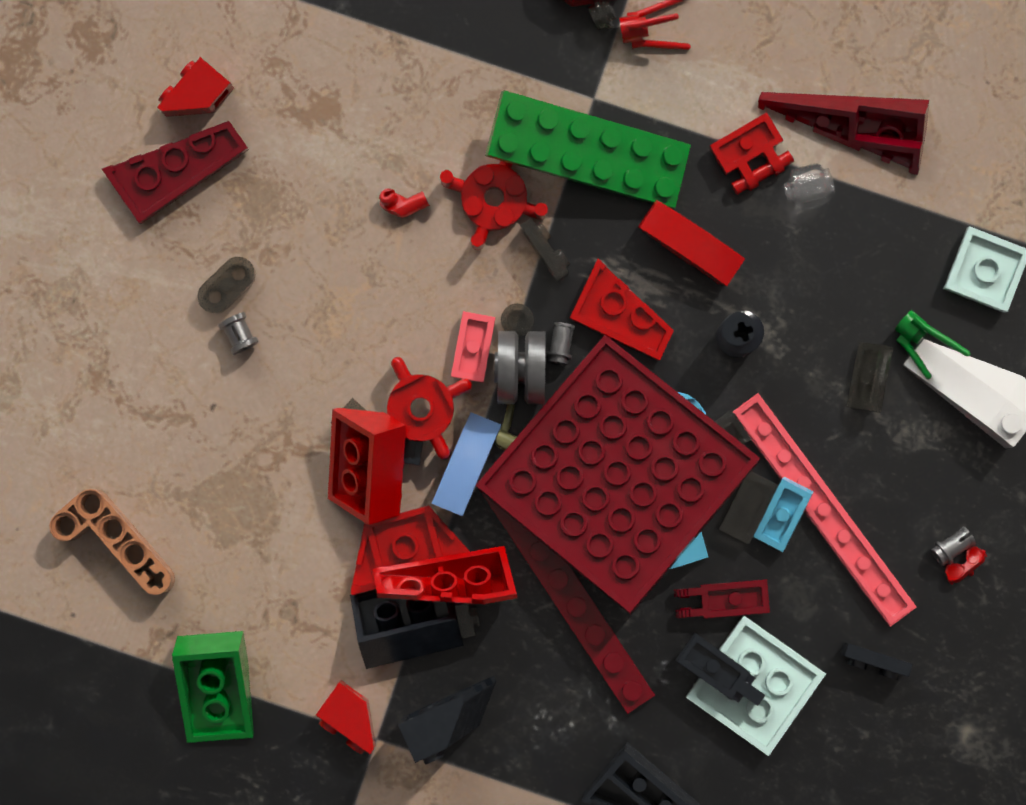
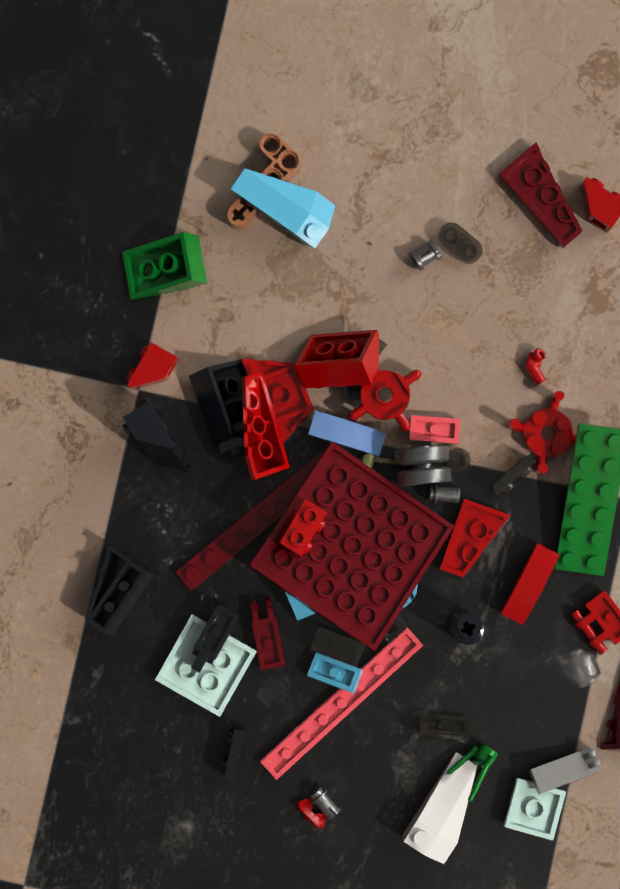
camera: 85 degrees right, 0 degrees up
(154, 503) = (292, 207): none -> medium azure wedge
(589, 537) = (302, 529): none -> red bracket
(941, 223) = (565, 770): none -> light grey hinge

